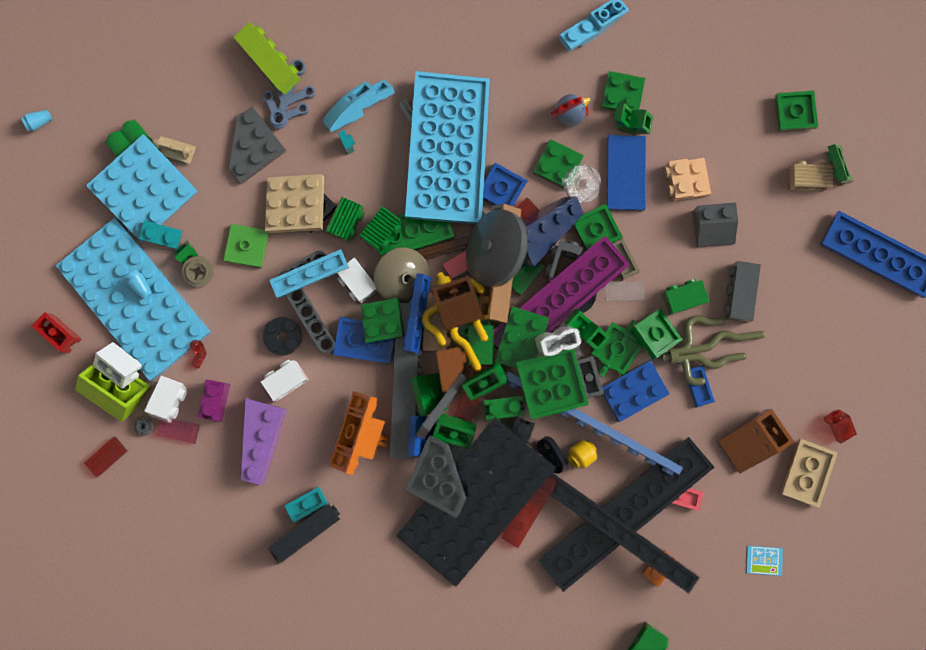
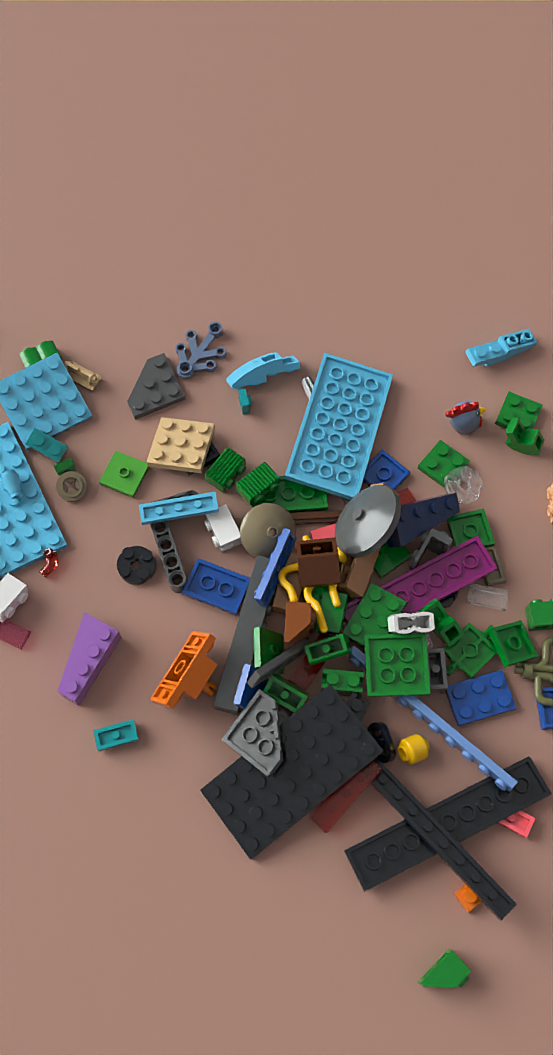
camera: 10 degrees right, 15 degrees down
(213, 400) = (52, 610): magenta brick -> none
(267, 58) = (189, 314): lime brick -> none
(284, 380) = (127, 606): white brick -> none
(304, 533) = (104, 764): black slope -> none
(382, 320) = (238, 568): green plate -> none
(626, 173) = (509, 486): blue tile -> none

